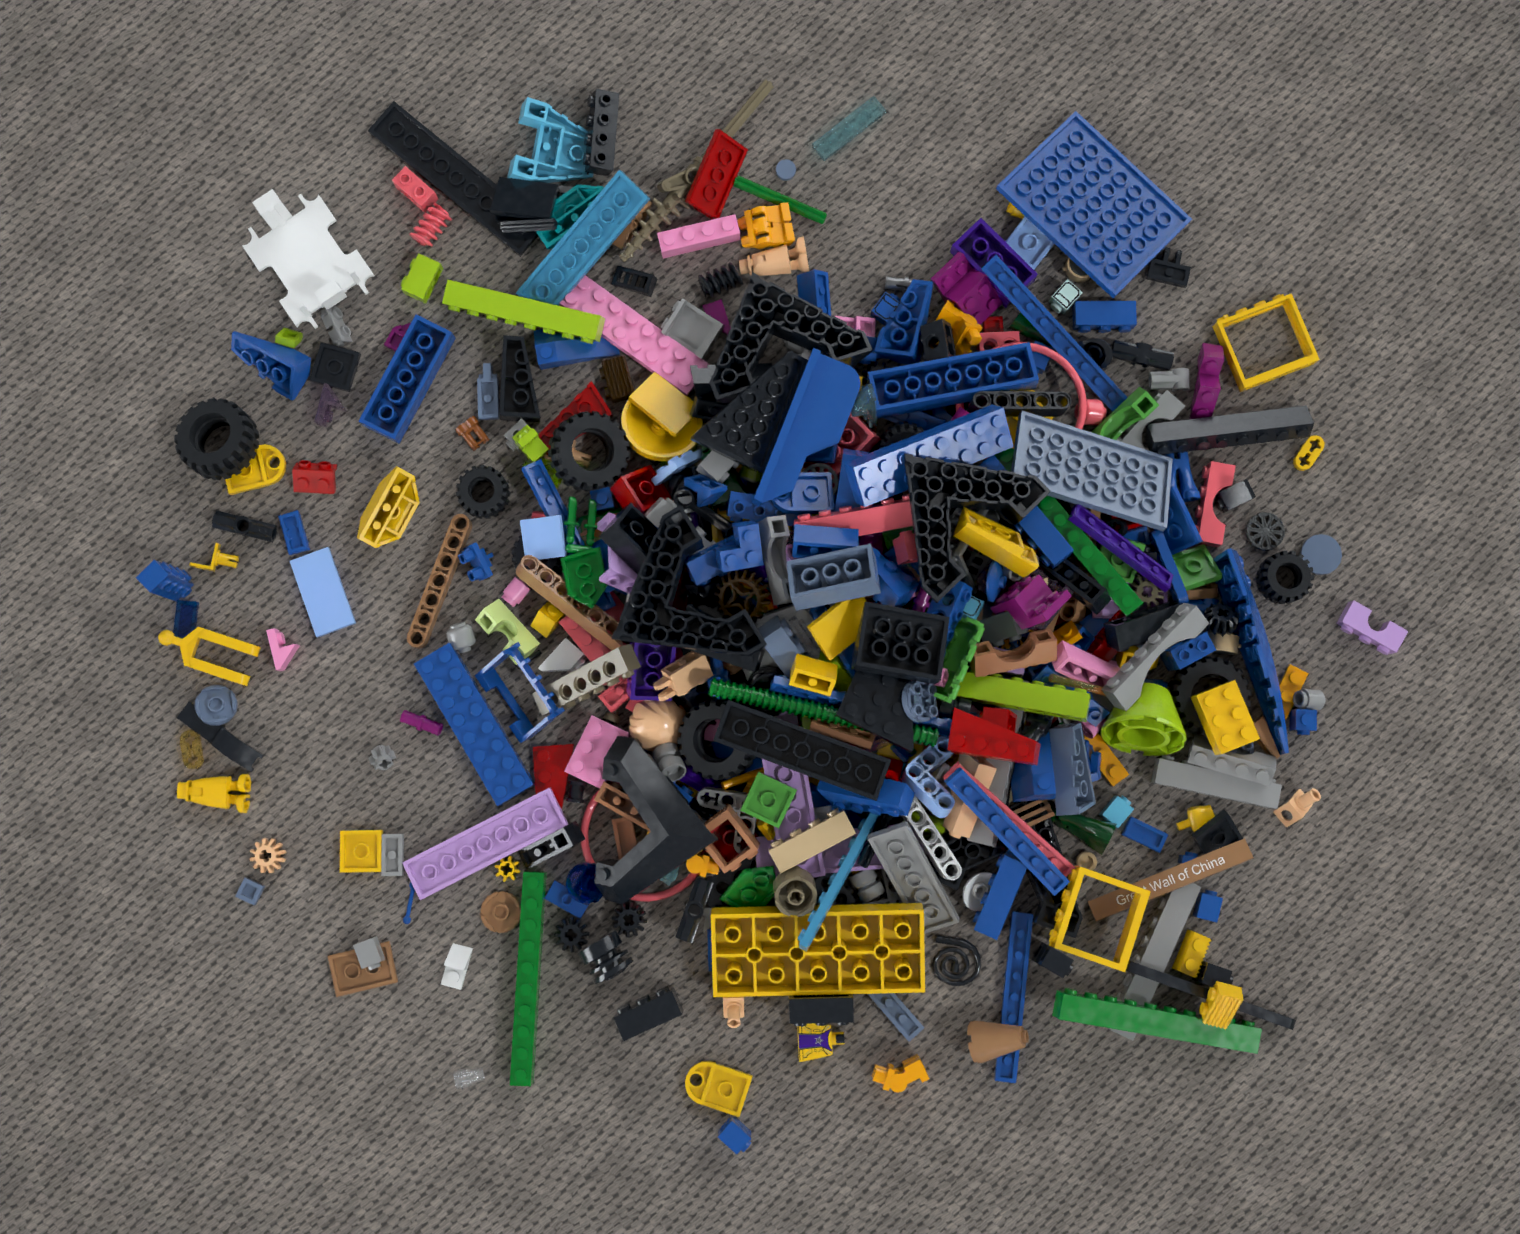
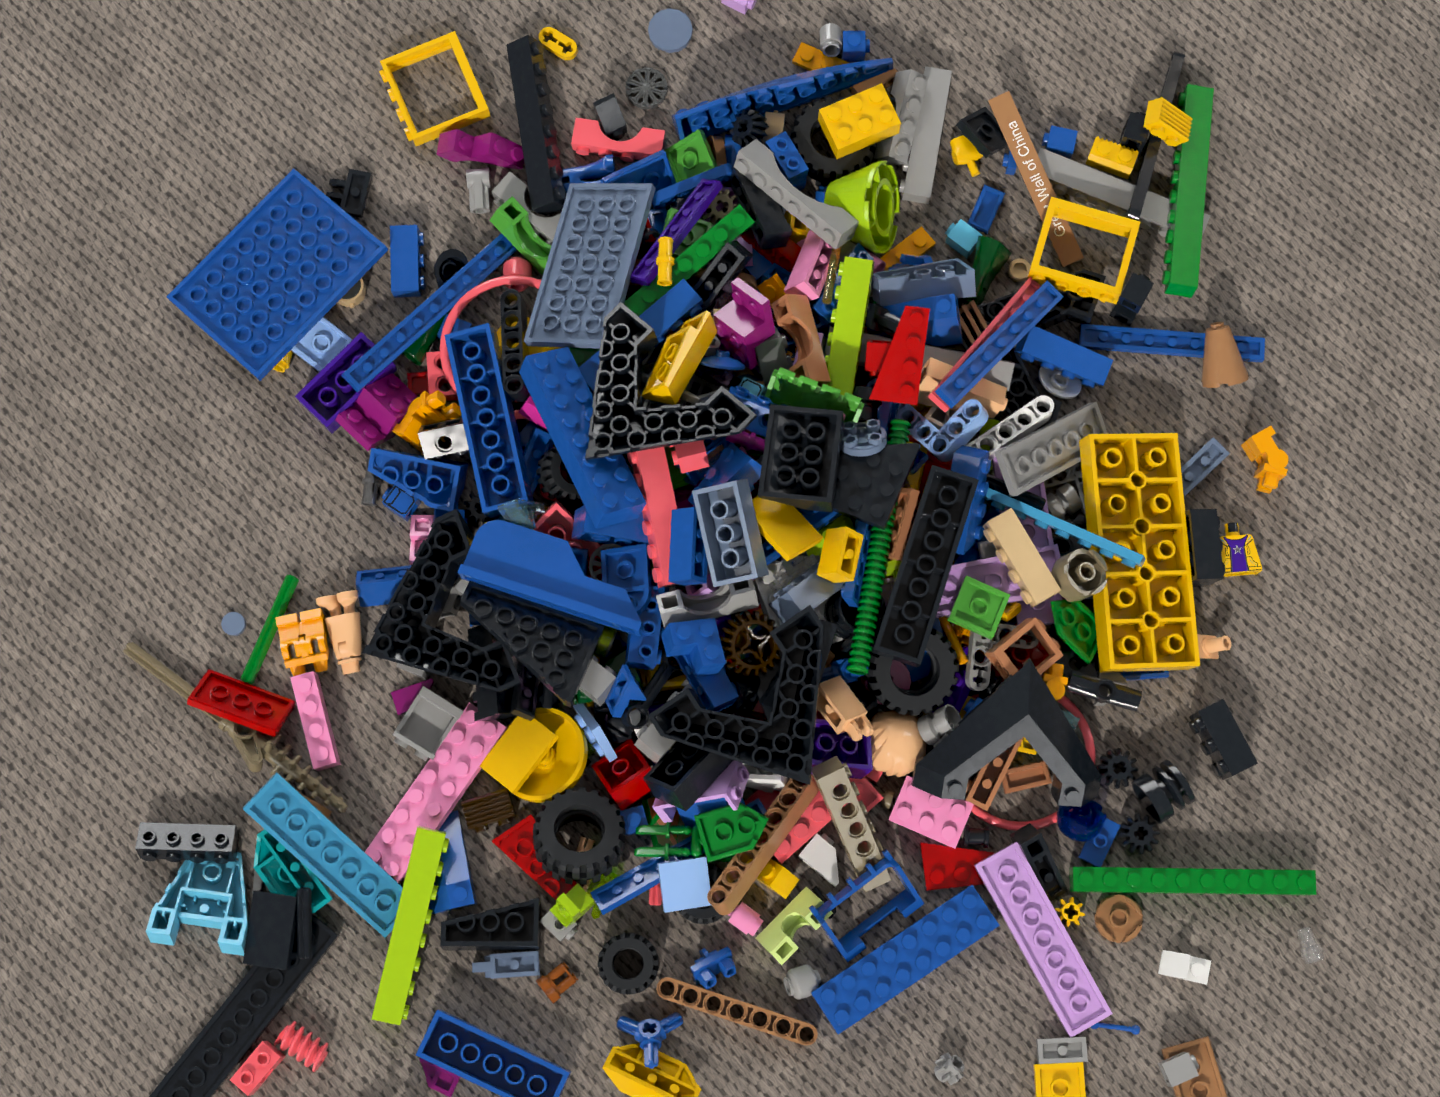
camera: 90 degrees left, 5 degrees down
(421, 278) = (368, 1054): lime brick -> none
(421, 722) = (905, 1024): magenta pin -> none
(430, 504) = (650, 1034): none -> blue bush
(649, 287) = (382, 779): black slope -> none
(720, 279) = (367, 694): black piece -> none
(720, 1087) = (1297, 658): yellow plate -> none
(735, 1135) = (1348, 637): blue brick -> none
(849, 128) = (184, 552): clear light blue plate -> none
(955, 966) = (1143, 407): black piece -> none
(1065, 297) = (385, 304): light aqua brick -> none
(1090, 533) = (665, 261): none -> yellow pin
(1142, 354) = (450, 218): black piece -> none
(1268, 580) = (700, 82): black tyre -> none
(1298, 806) = (946, 50): light nougat bracket -> none

